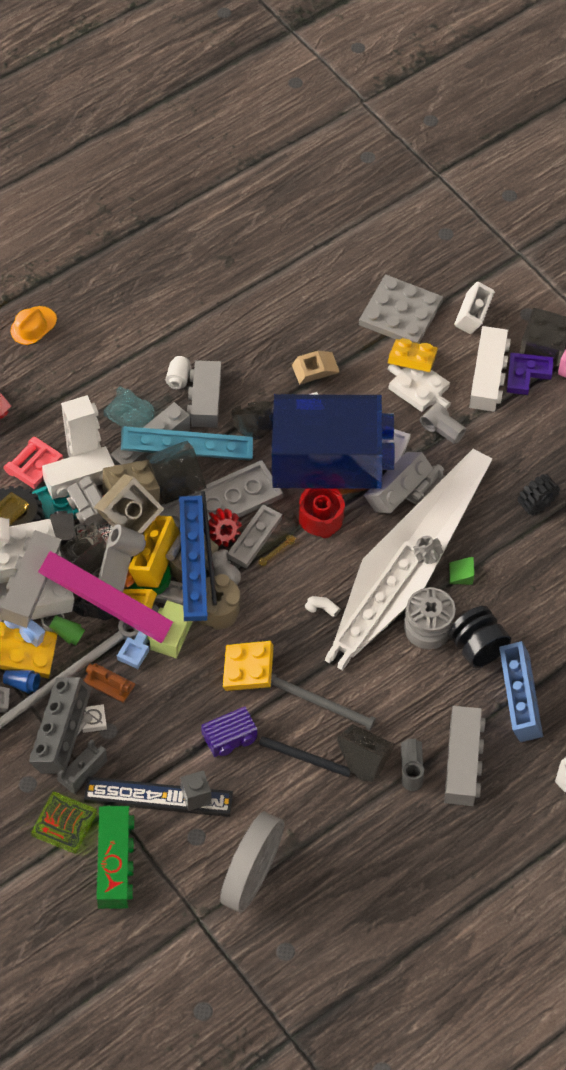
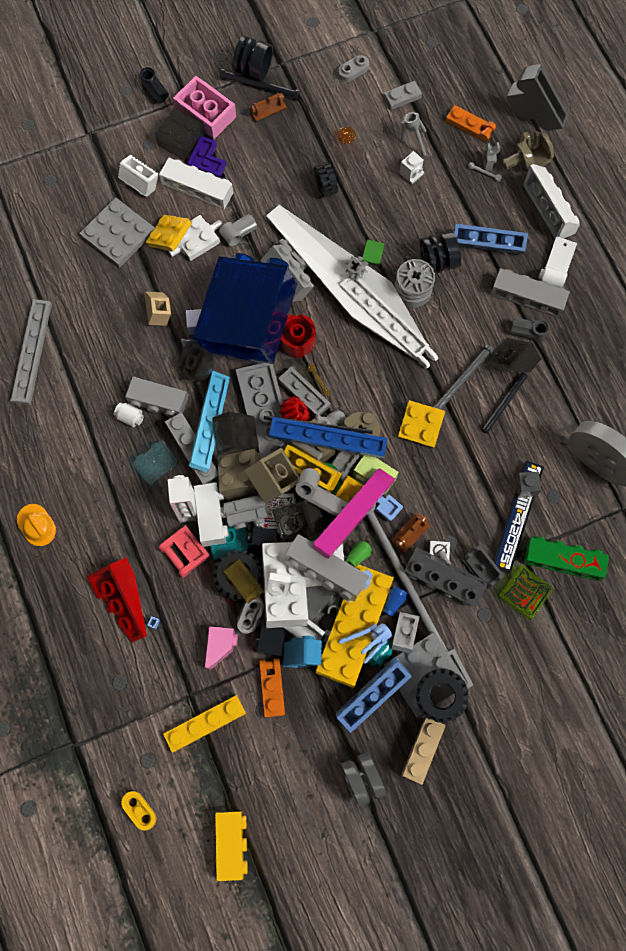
camera: 75 degrees left, 15 degrees up
(229, 269) = (31, 352): none -> light grey tile
(229, 732) = (476, 450): dark purple brick -> none
(324, 603) = (376, 358): white arm -> none
(516, 785) = (558, 262): none -> white door

